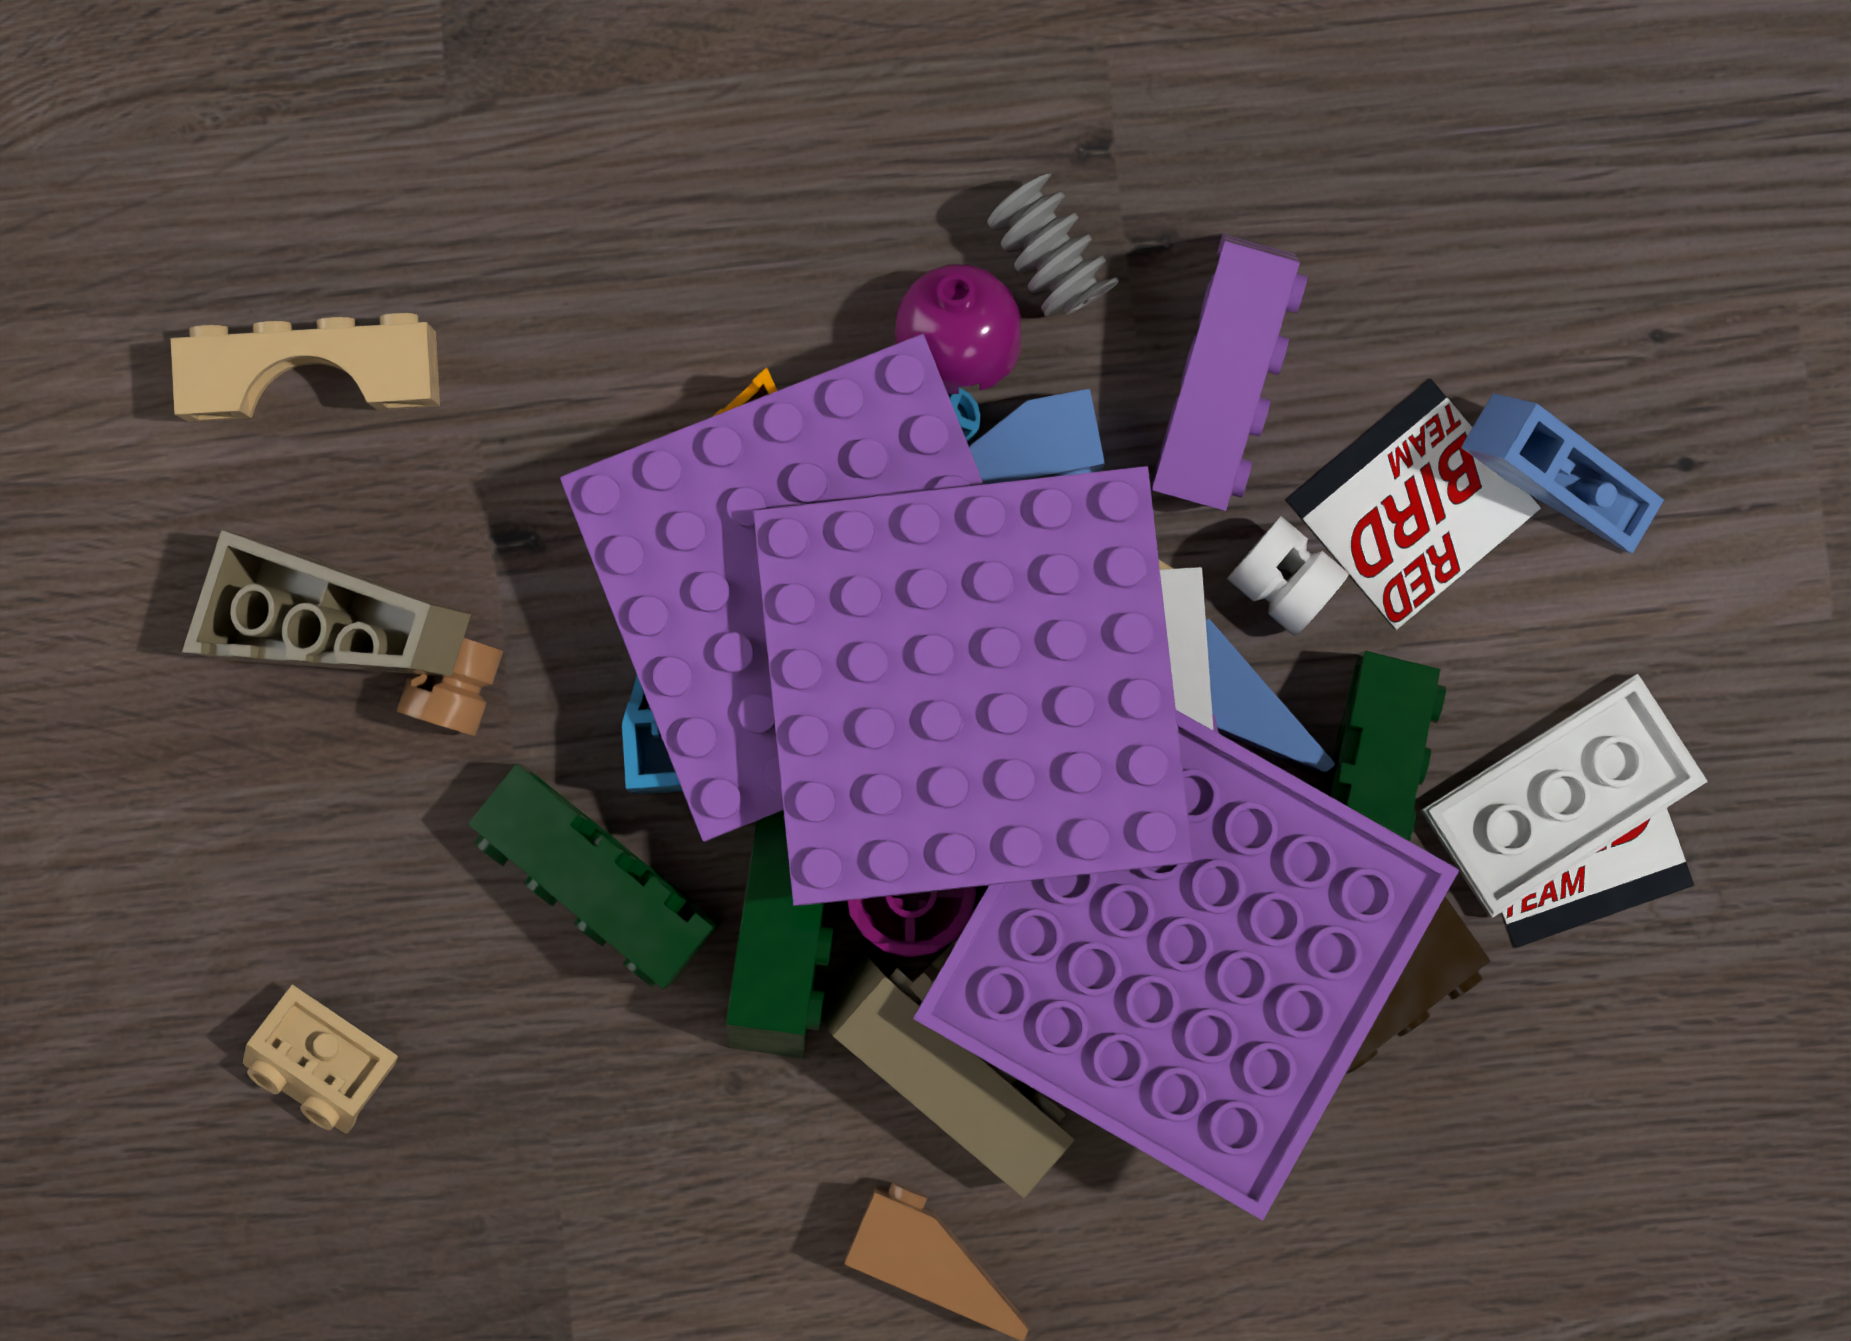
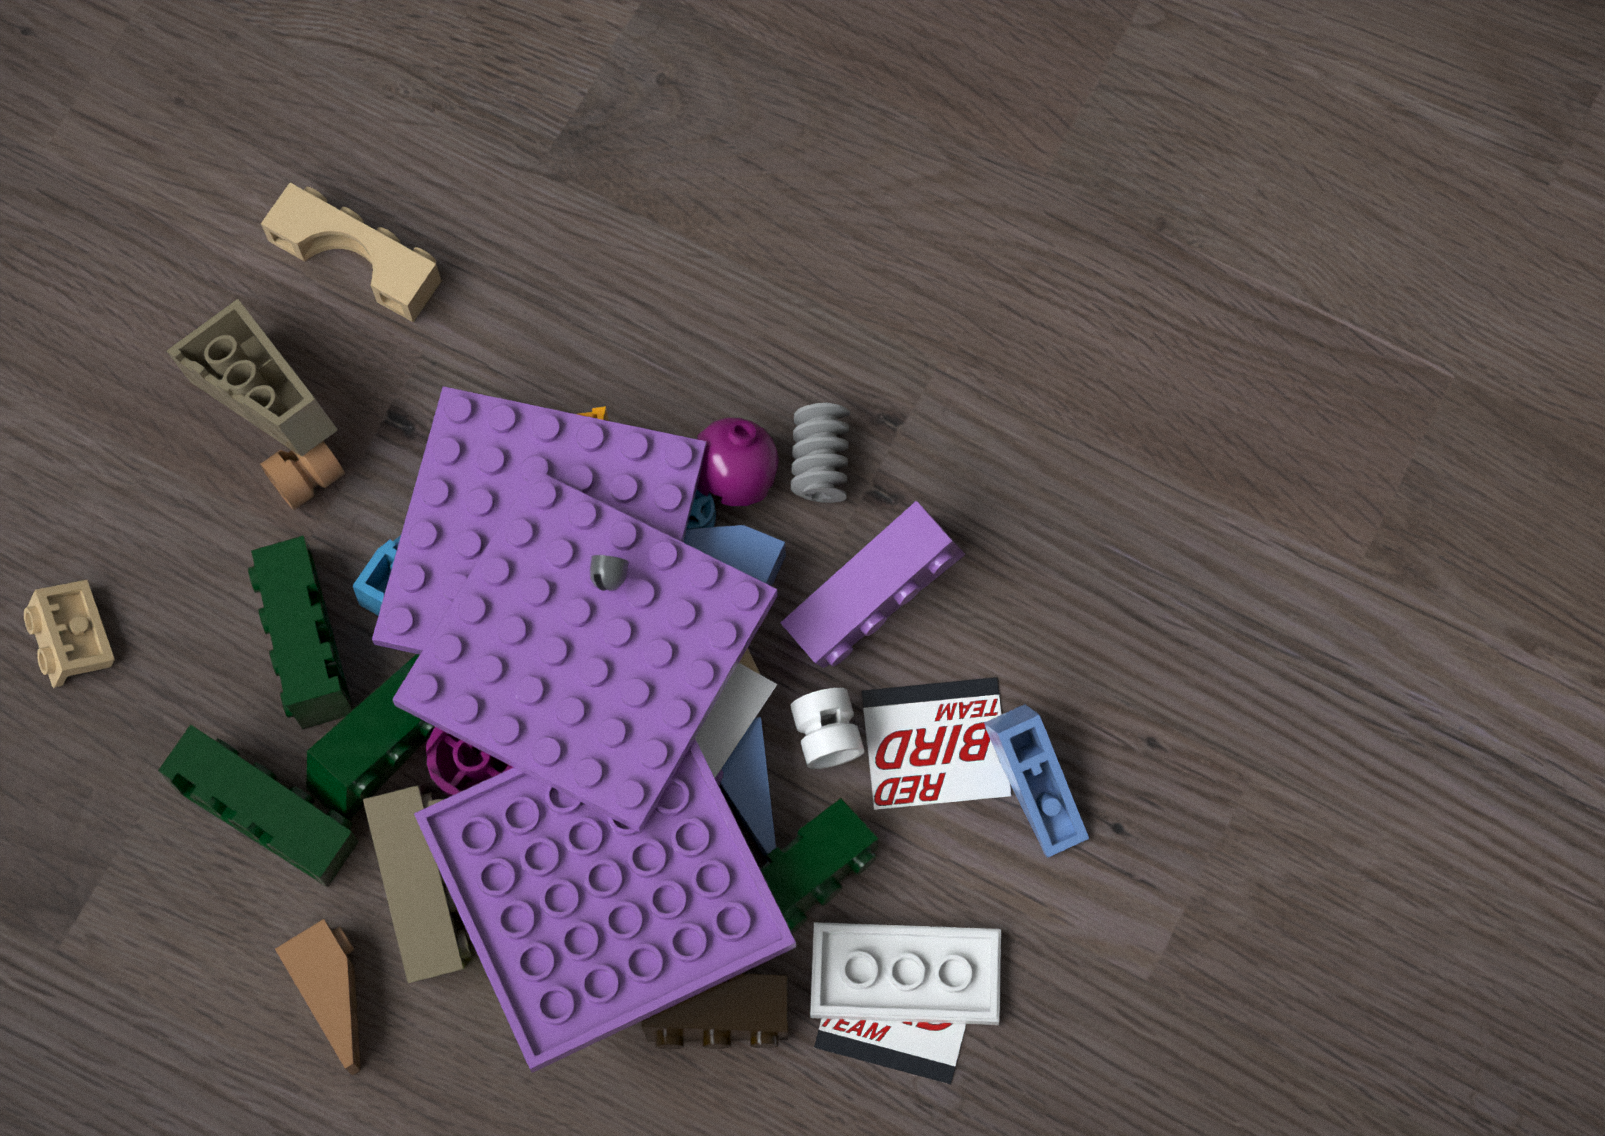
camera: 35 degrees right, 15 degrees down
(702, 1111) = (259, 806): none -> dark green wedge
(943, 585) = (608, 572): none -> dark grey hinge

